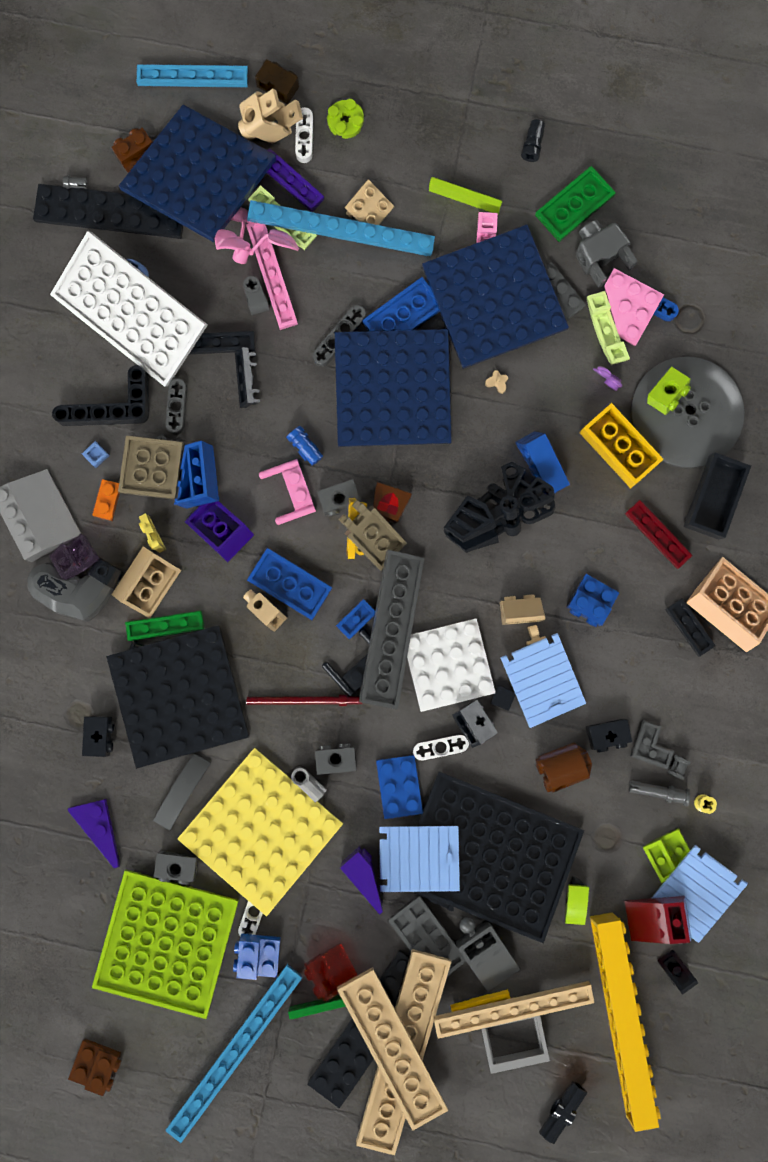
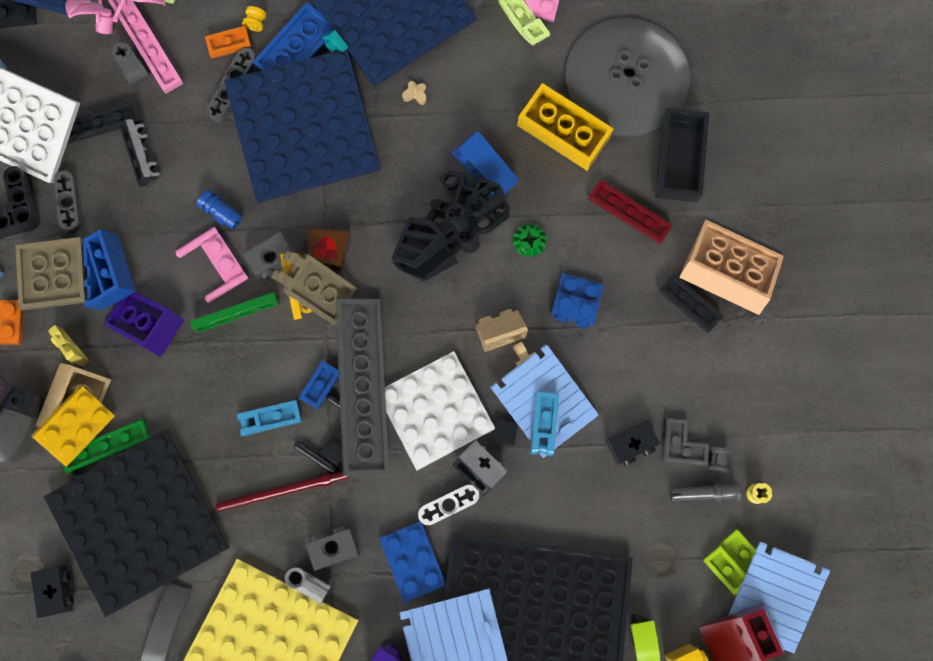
camera: 15 degrees left, 5 degrees down
(143, 603) = (73, 426): none -> yellow plate
(264, 610) = (214, 400): tan torso -> none
(289, 584) = (236, 364): blue plate -> none
(298, 539) = (235, 312): none -> green tile
(308, 636) = (270, 418): none -> dark azure plate
(344, 296) = (227, 42): none -> orange plate
(372, 281) = (254, 18): none -> yellow wheel
(438, 320) = (334, 42): none -> teal plate
(539, 699) = (544, 422): none -> dark azure plate
(558, 543) = (523, 247): none -> green gear
(564, 767) = (591, 491): reddish brown cylinder -> none
(611, 380) = (537, 62): medium lavender plate -> none
(673, 381) = (601, 45): lime brick -> none

